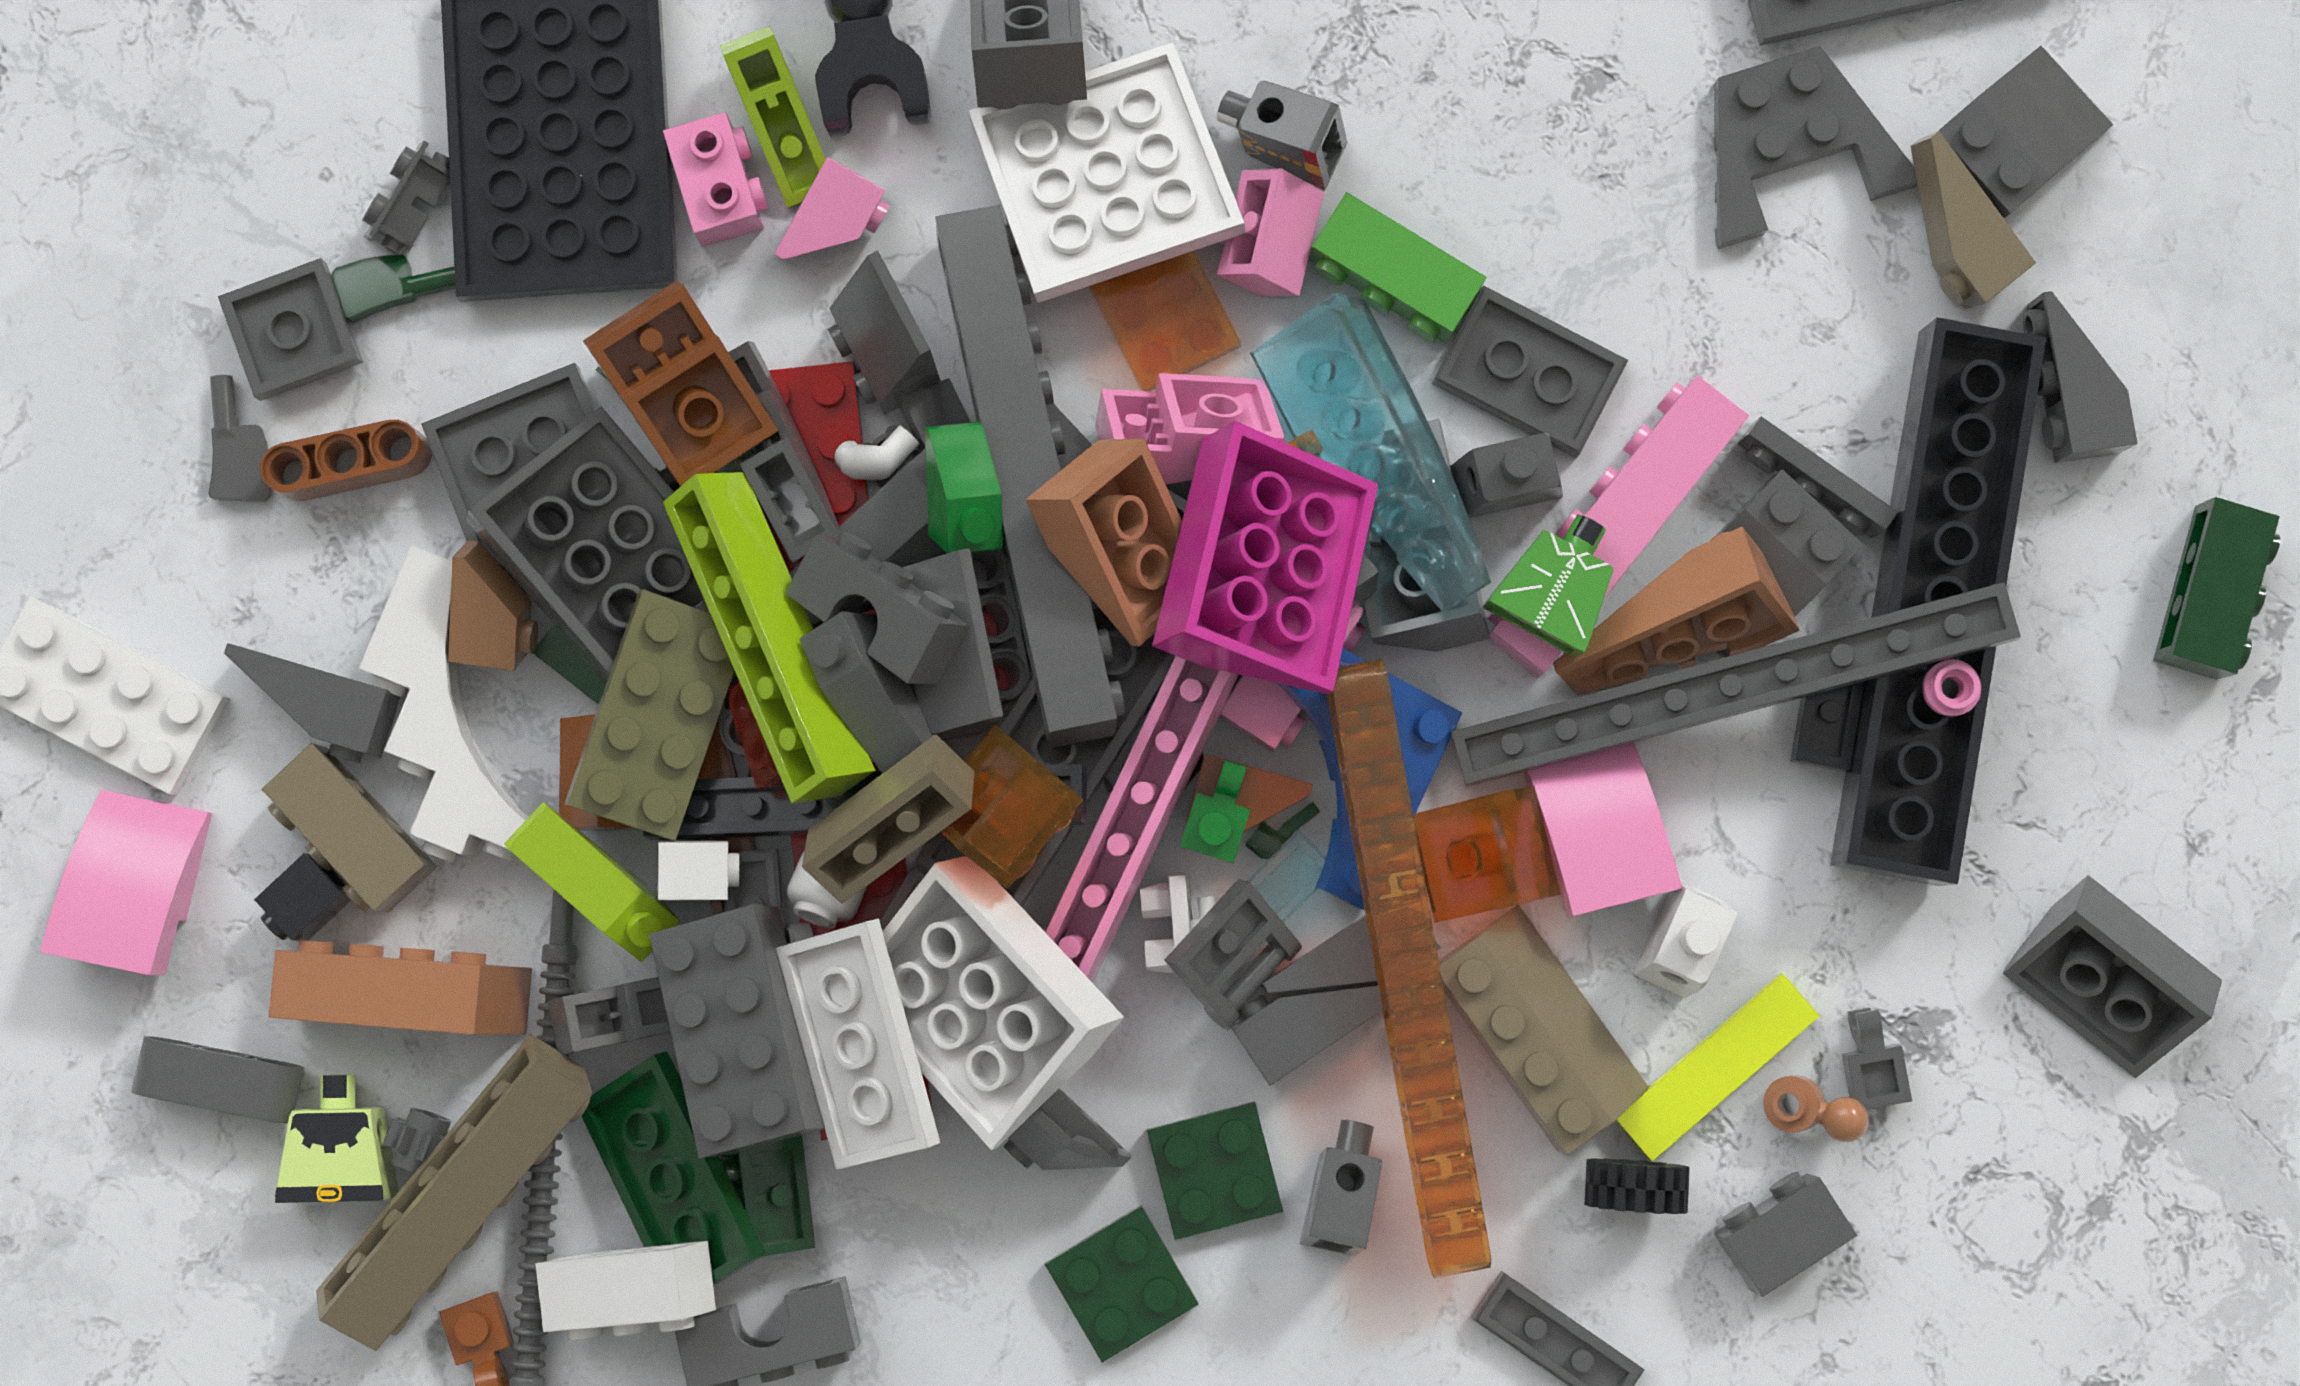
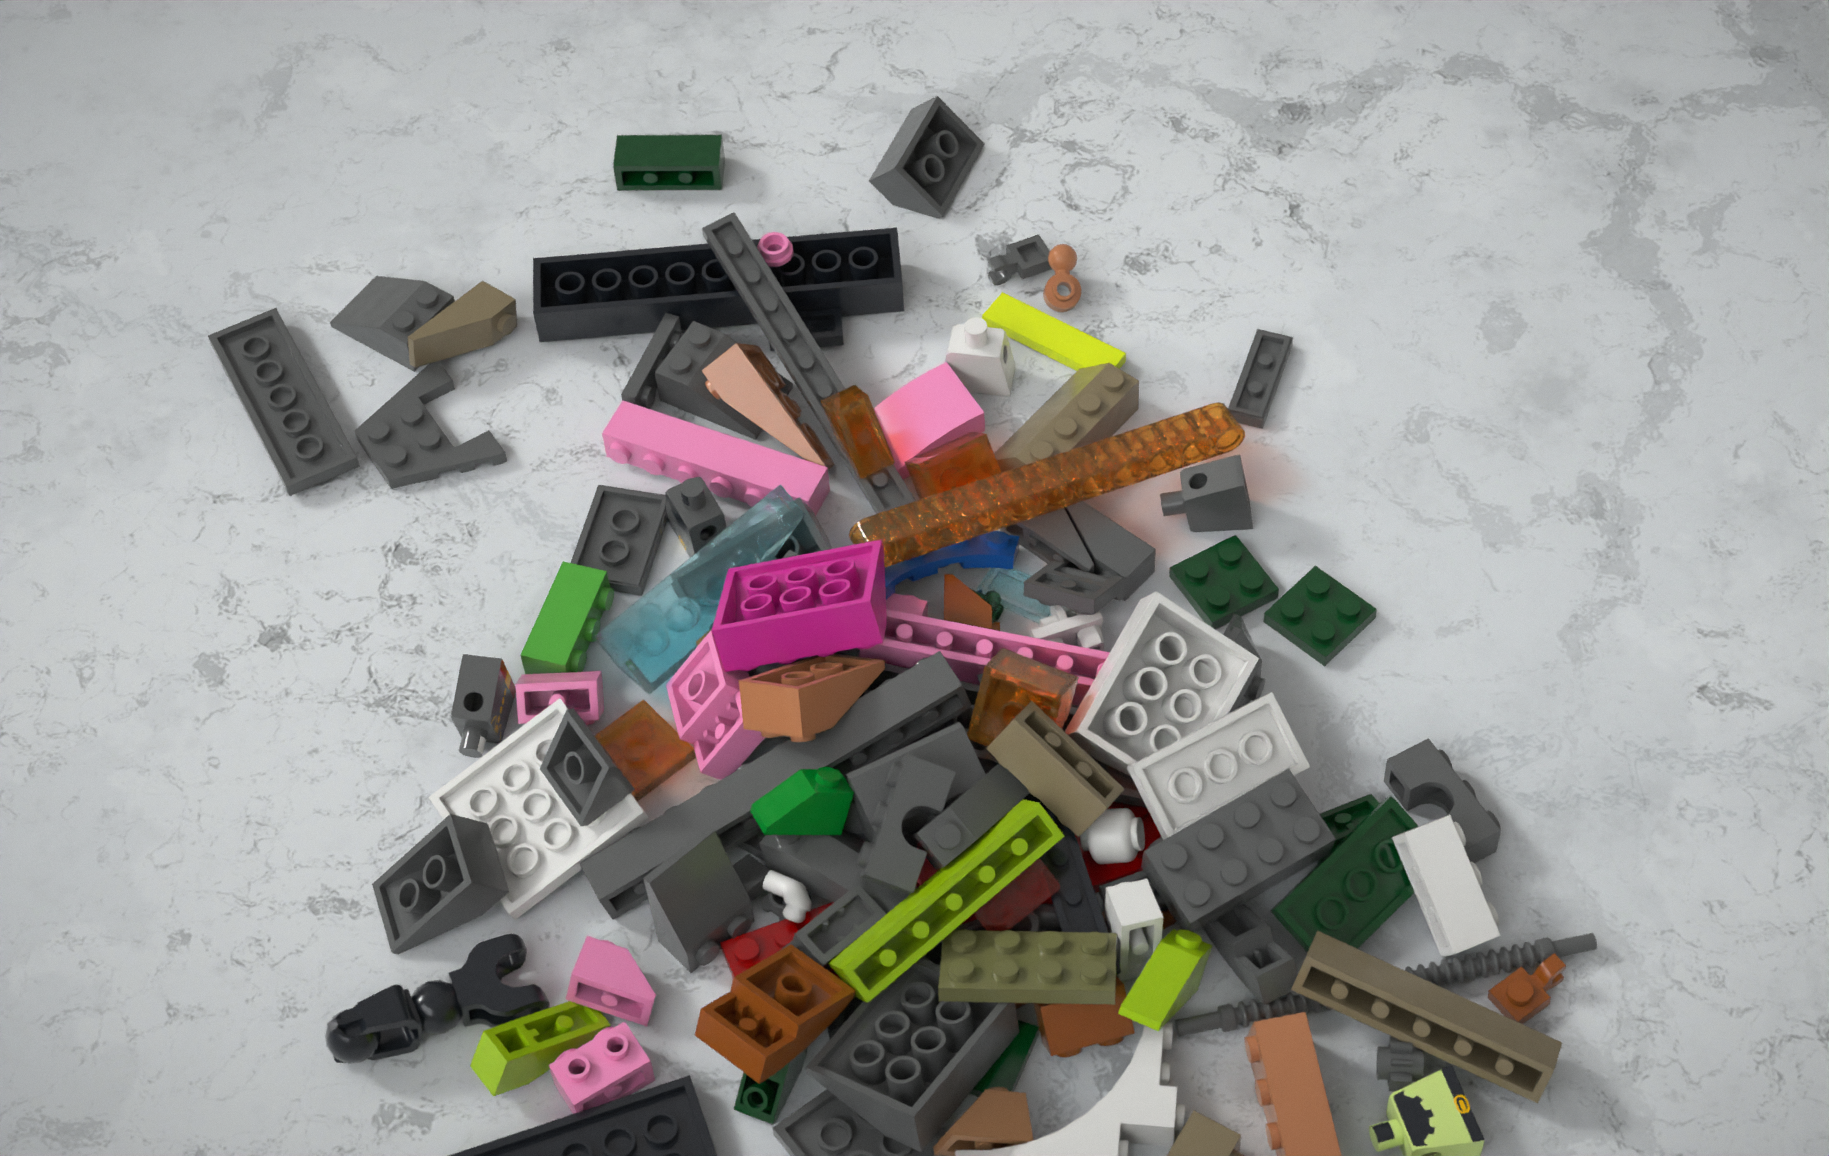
camera: 100 degrees left, 30 degrees down
(1110, 232) = (583, 771): none -> dark grey slope
(1216, 821) = (985, 612): green plate -> none
(1556, 588) = (768, 460): bright green torso -> none
(1583, 724) = (858, 430): none -> clear orange slope
(1637, 1186) = (1144, 347): black tyre -> none
(1784, 1232) = (1145, 277): dark grey brick -> none
(2081, 393) = (563, 237): dark grey slope -> none

